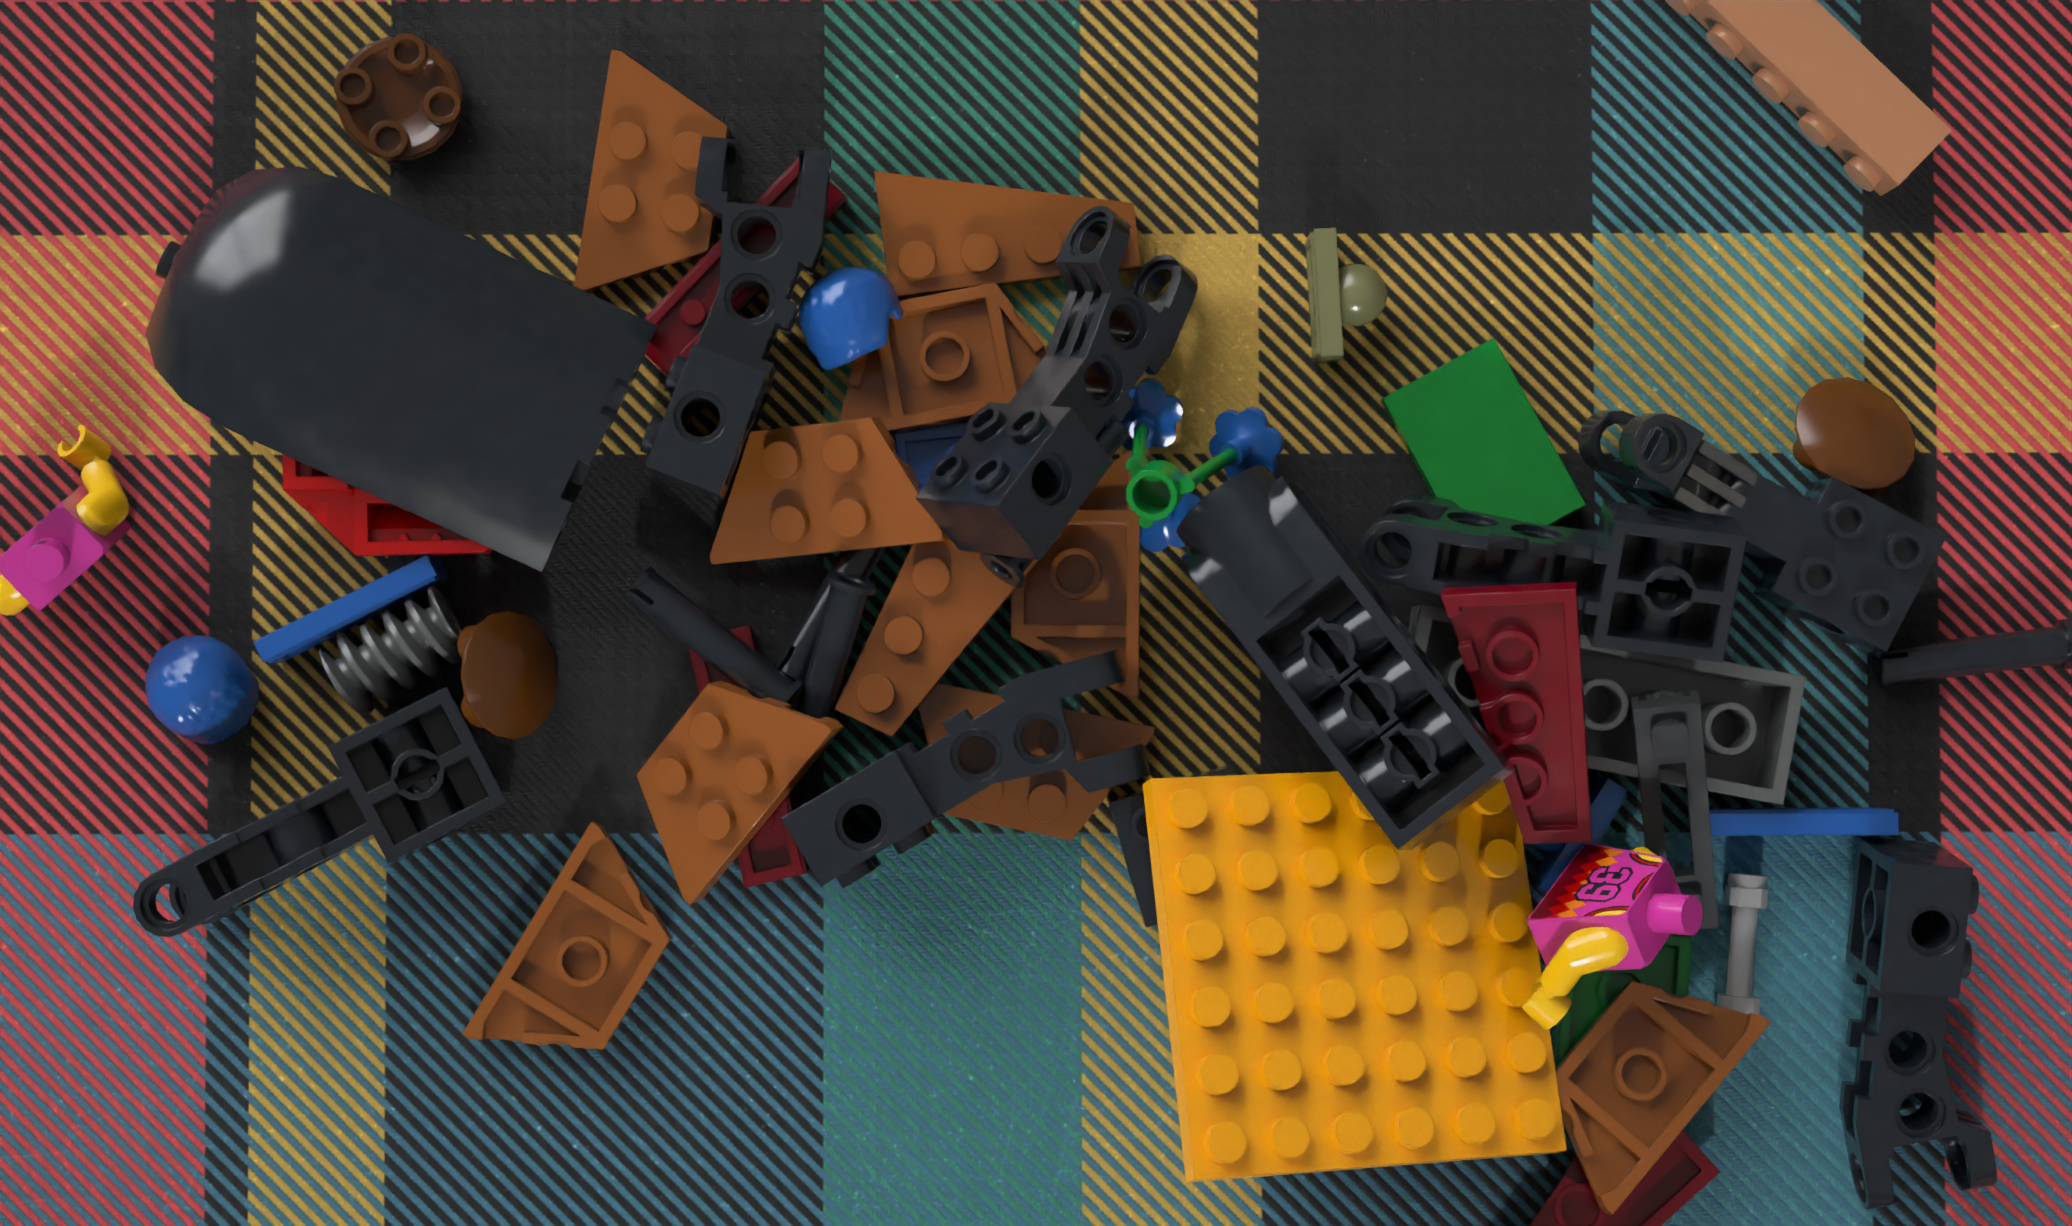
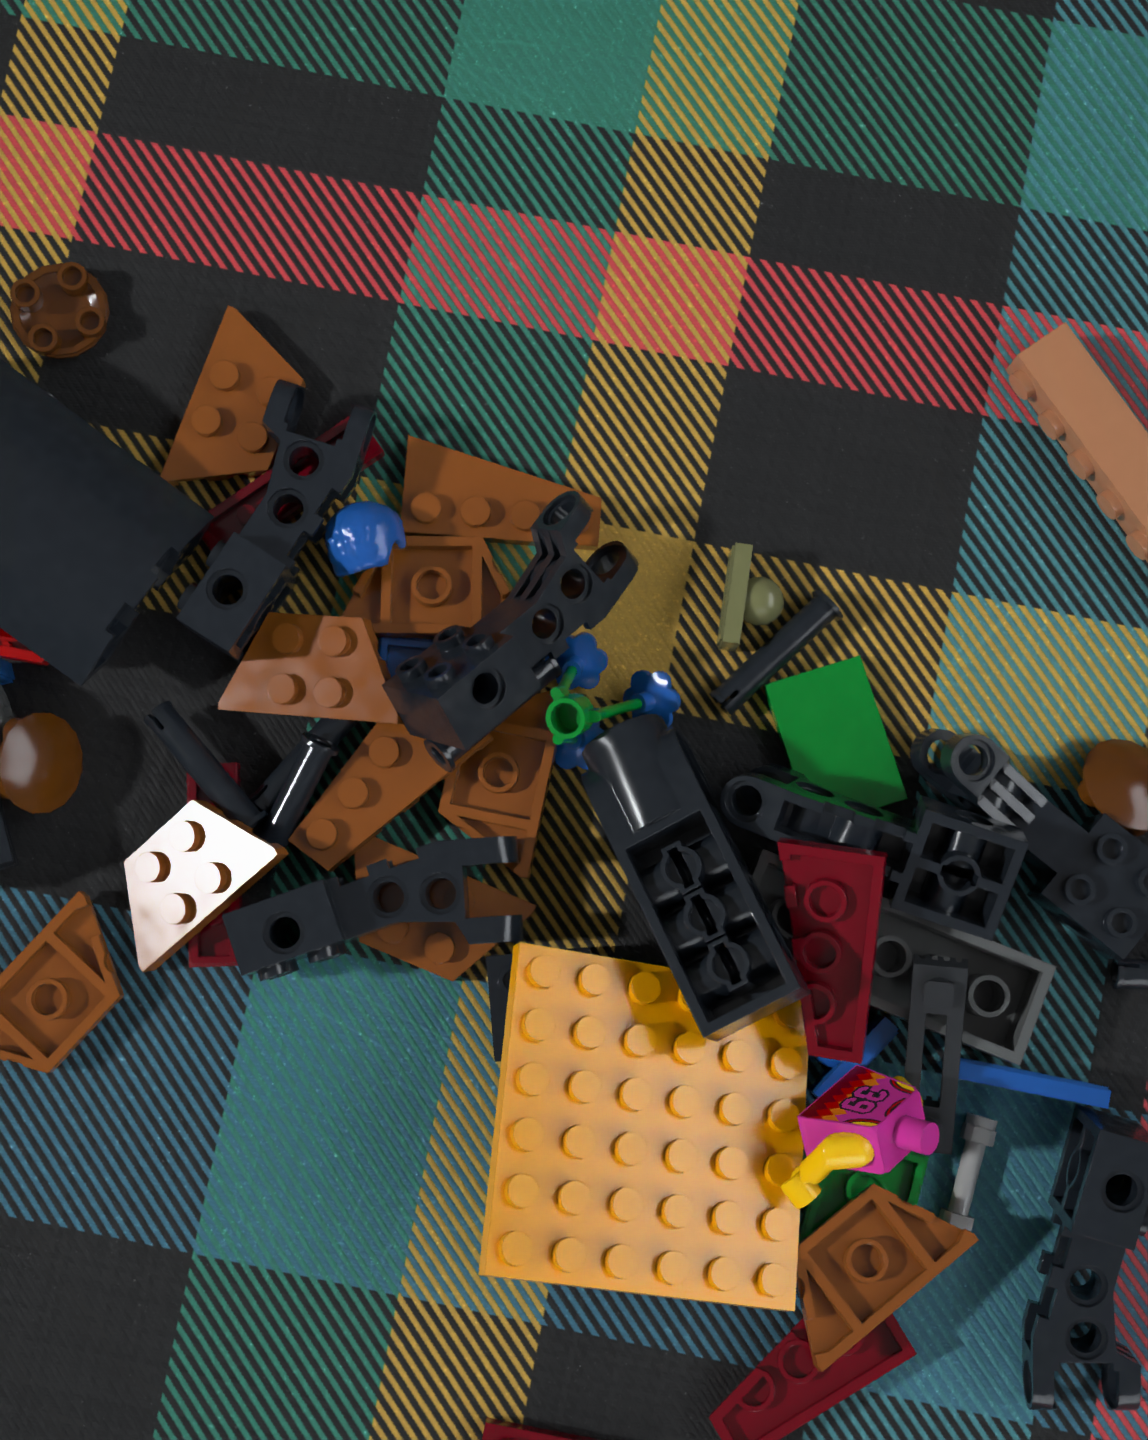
camera: 10 degrees right, 5 degrees down
(1389, 355) = (776, 652): none -> black pin

